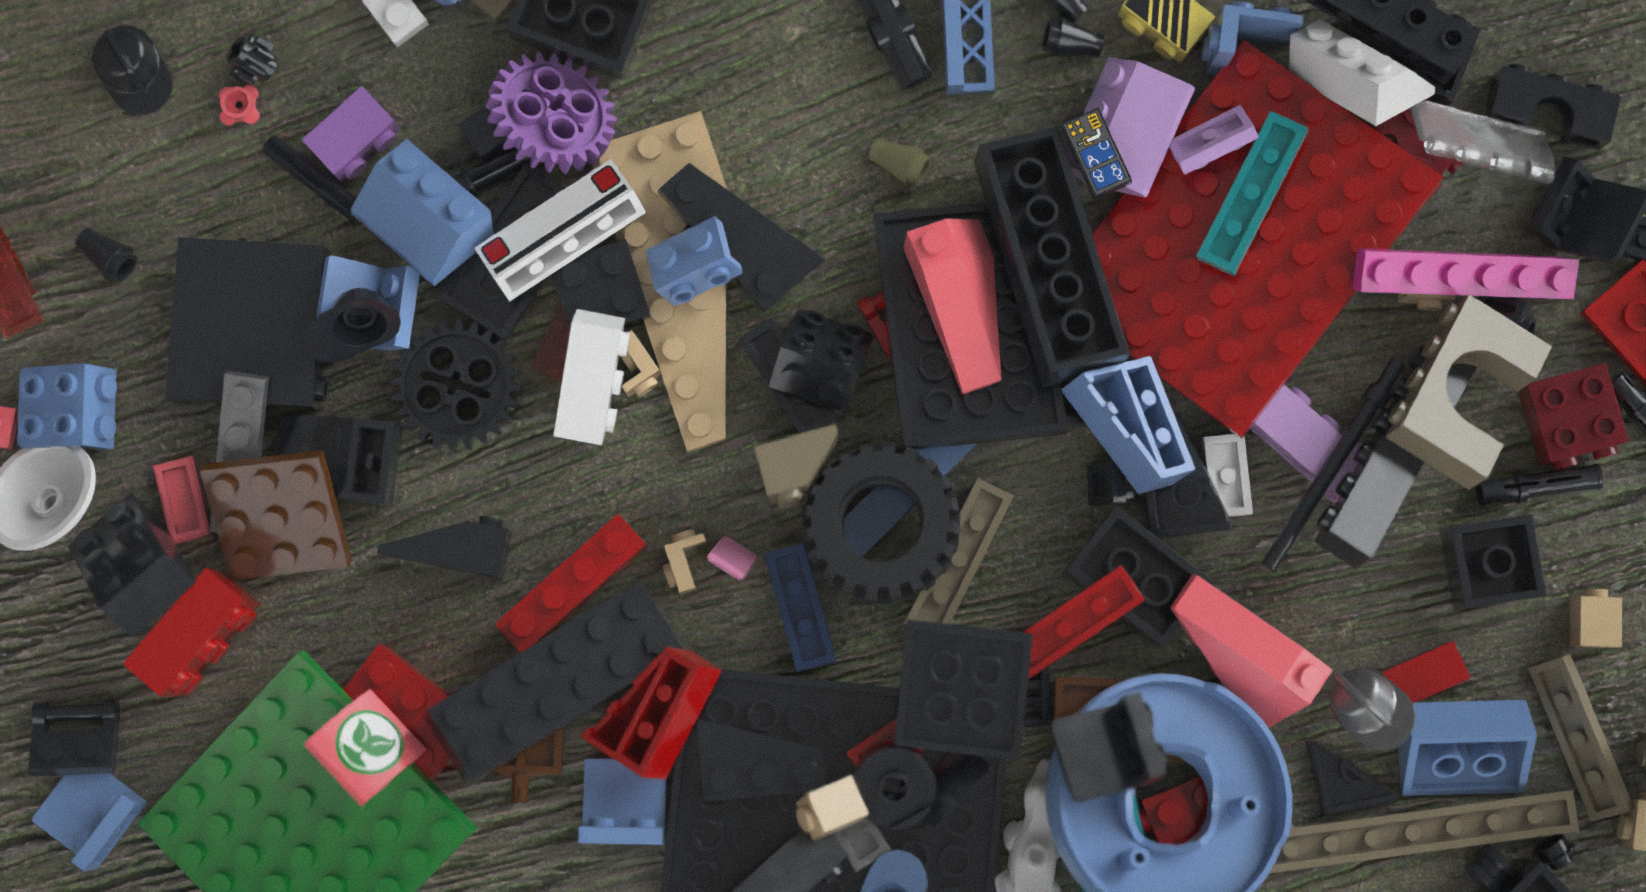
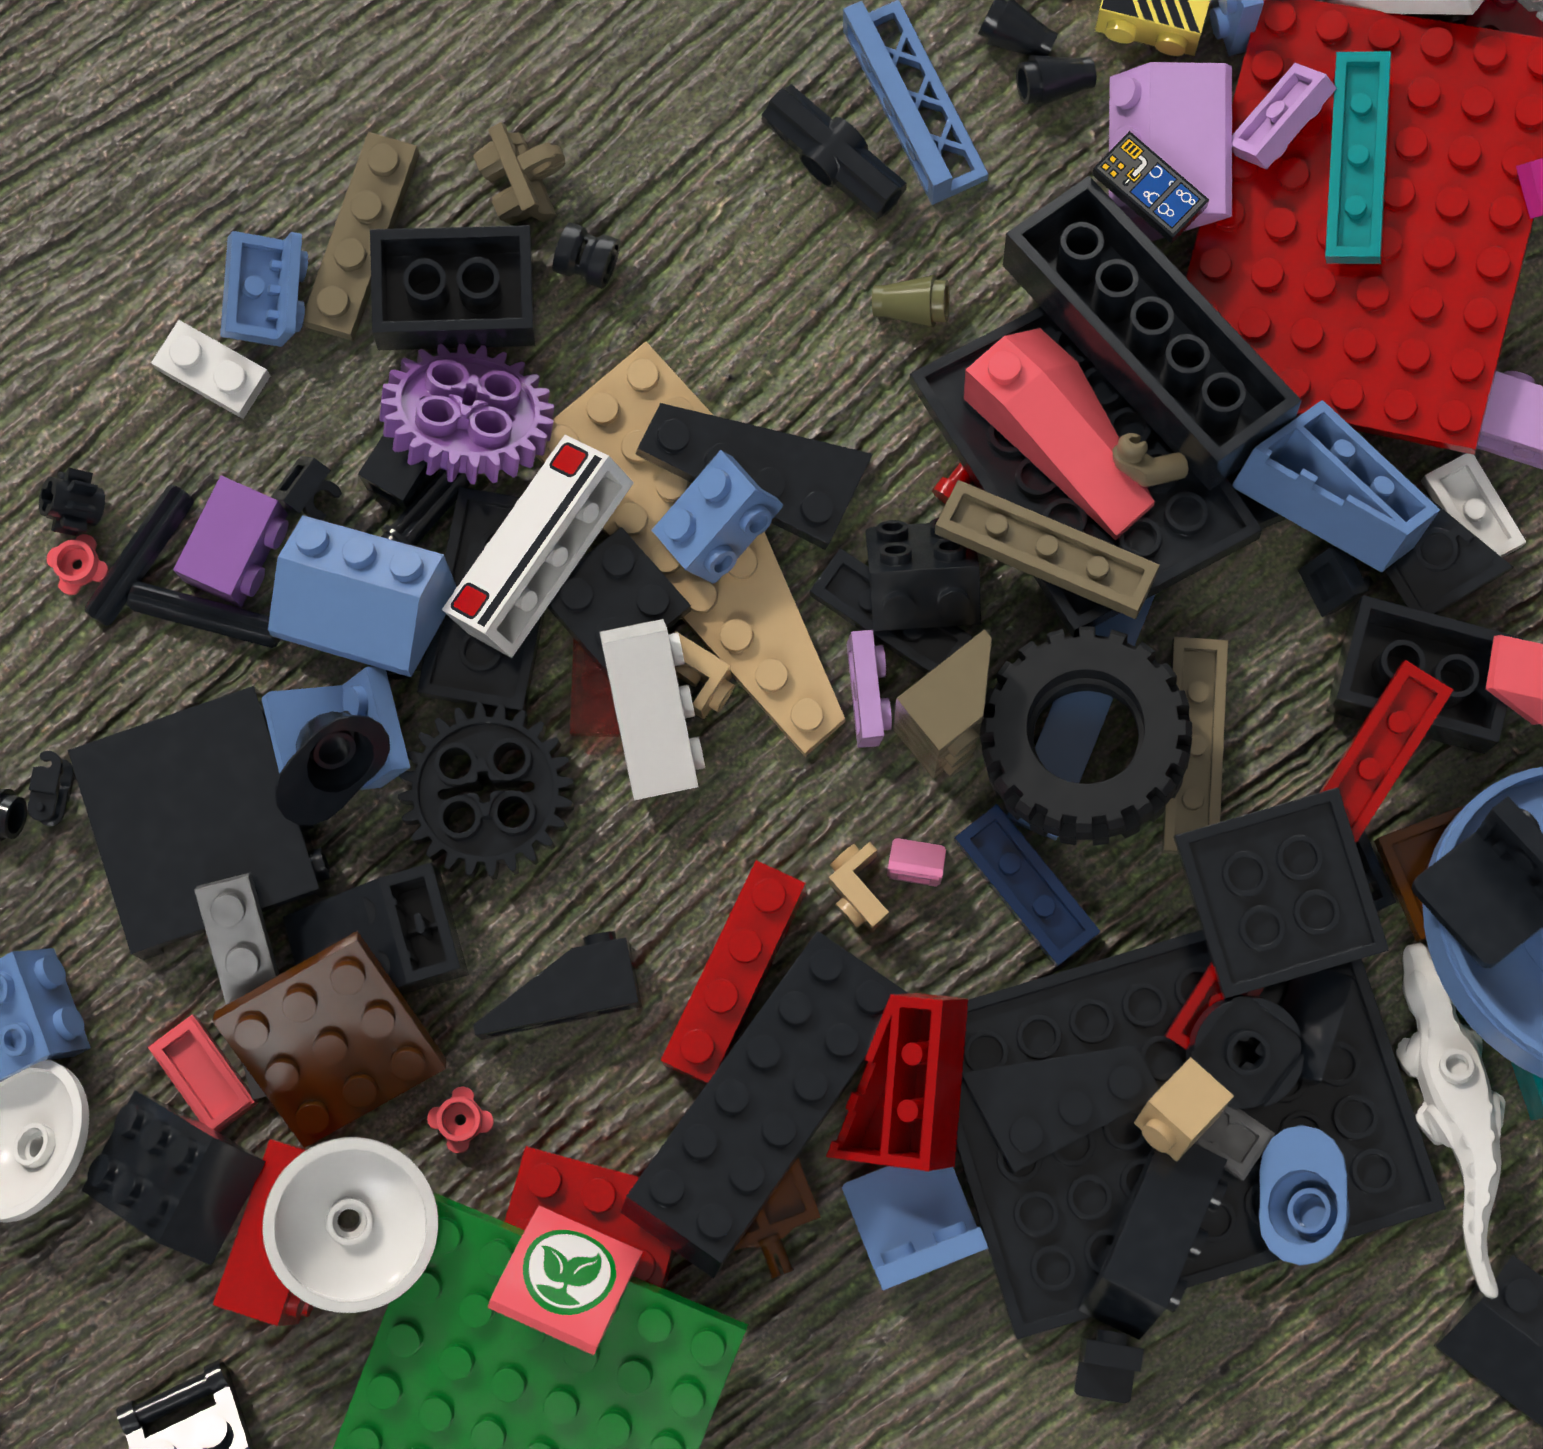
camera: 15 degrees left, 5 degrees down
(156, 258) = (50, 789): none -> black piece
(229, 677) = (356, 1265): none -> white dish
(284, 116) = (139, 554): none -> black axle
(334, 601) = (457, 1135): none -> coral plate
(416, 114) = (301, 484): none -> black tile
(684, 31) = (586, 255): none -> black wheel
(755, 408) = (866, 665): none -> lavender plate
(909, 382) = (1047, 549): none -> dark tan plate
(1000, 351) = (1145, 470): none -> dark tan arm

